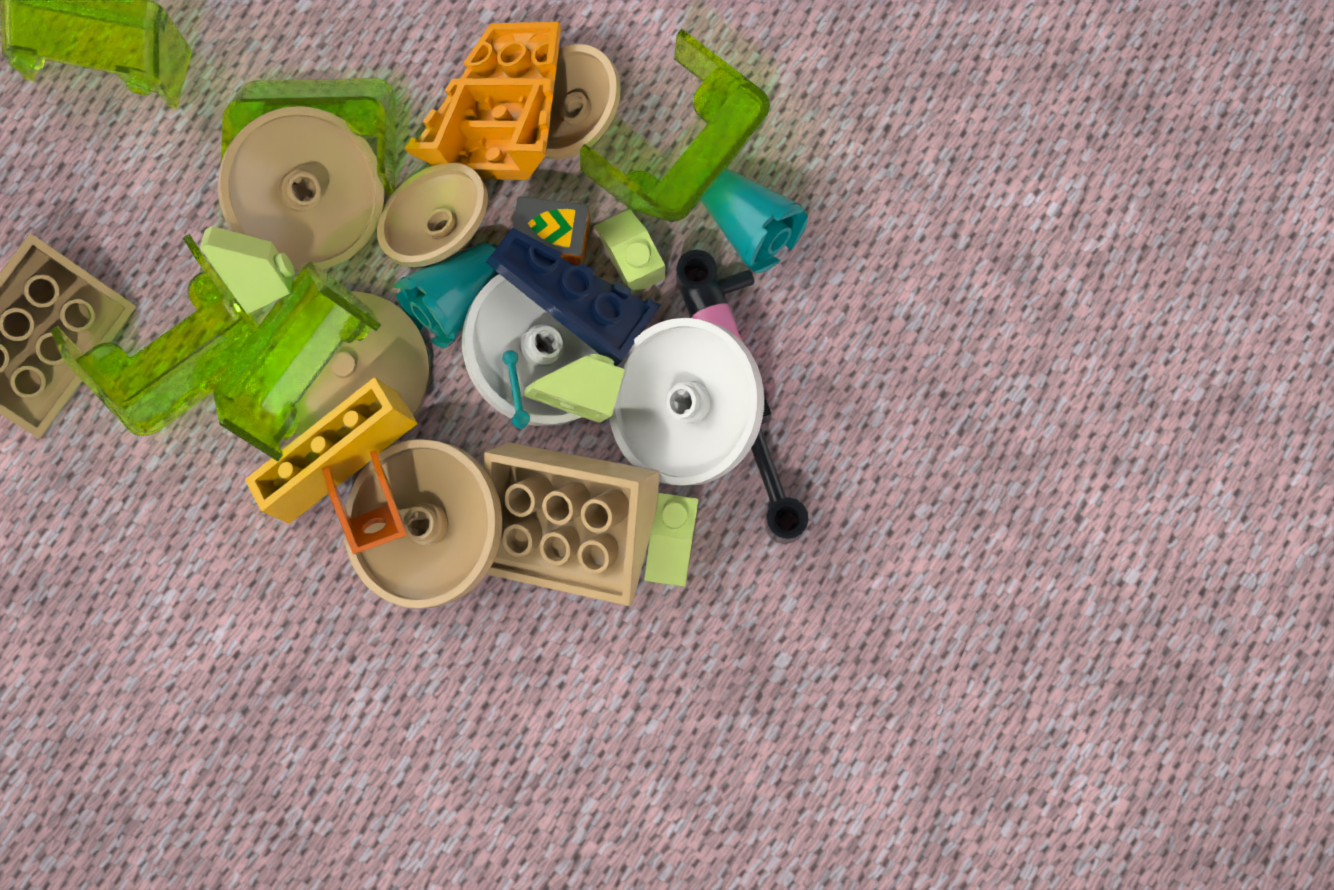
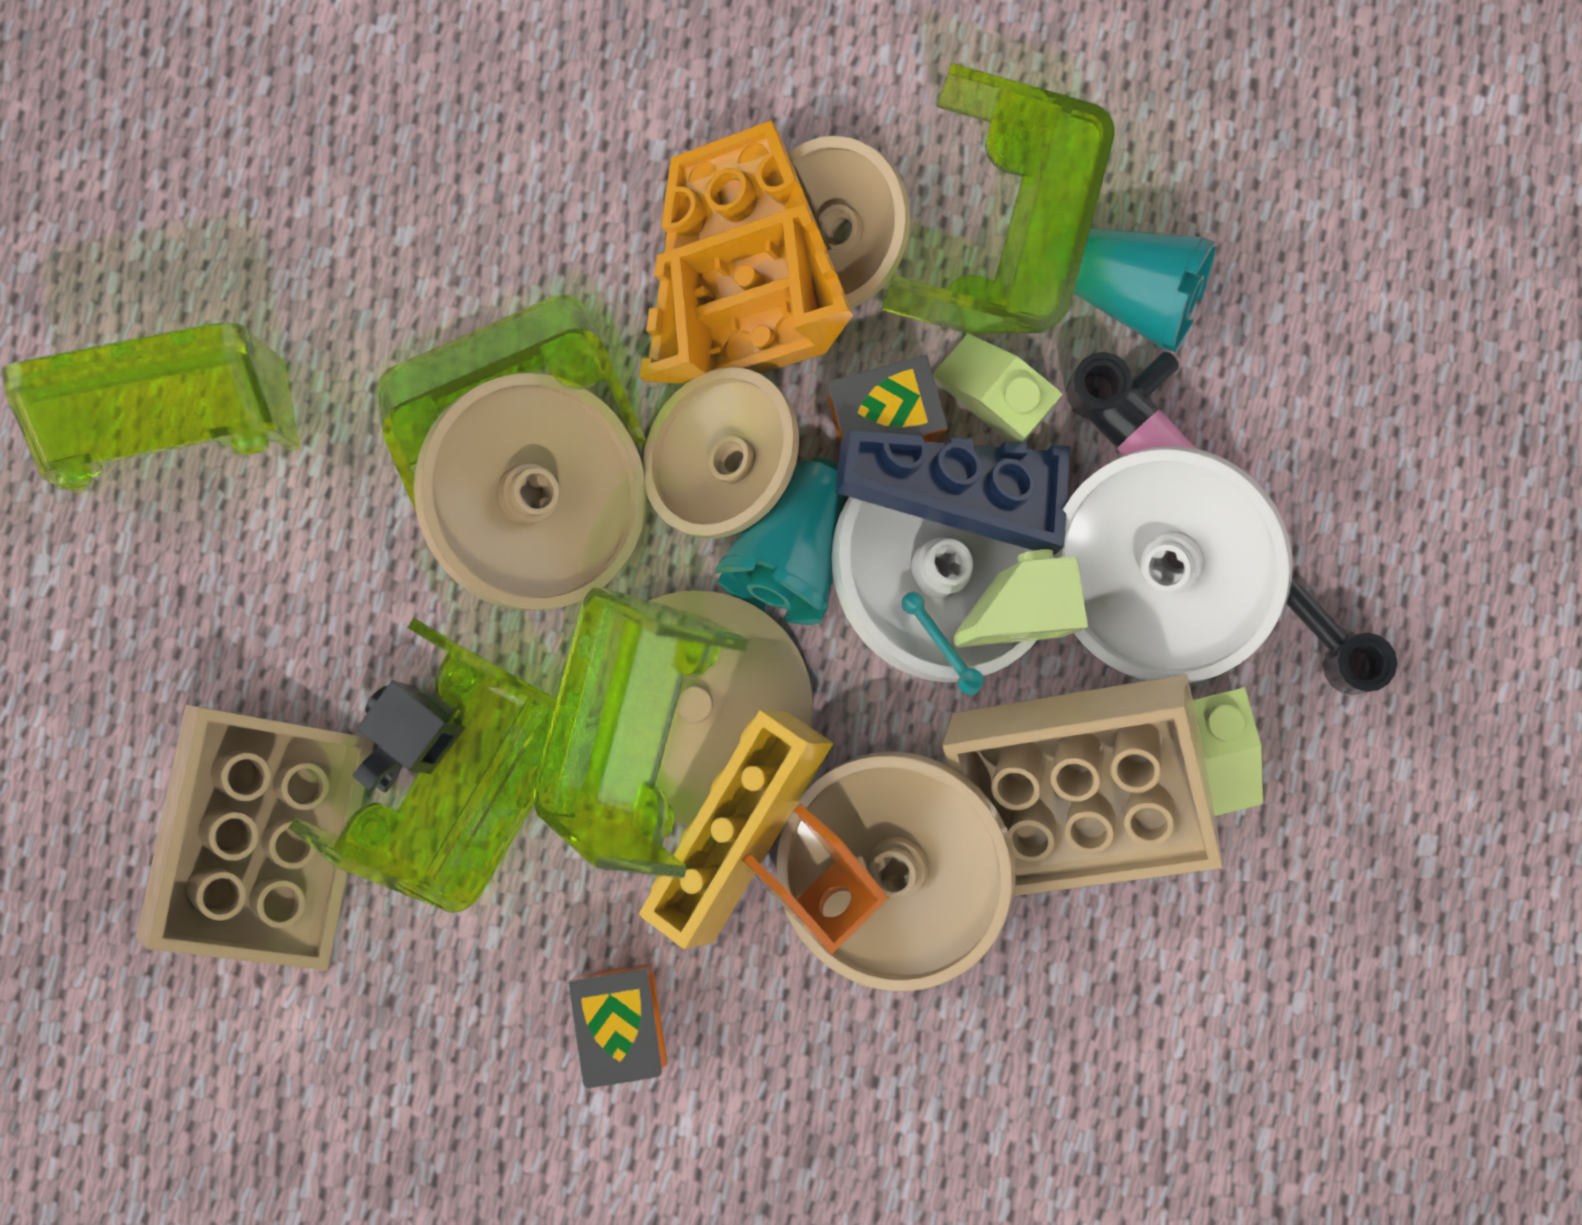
camera: 20 degrees left, 5 degrees up
(156, 308) = (408, 734): none -> black brick
(202, 546) = (618, 1025): none -> piece
(248, 267) = (517, 630): yellowish green slope -> none

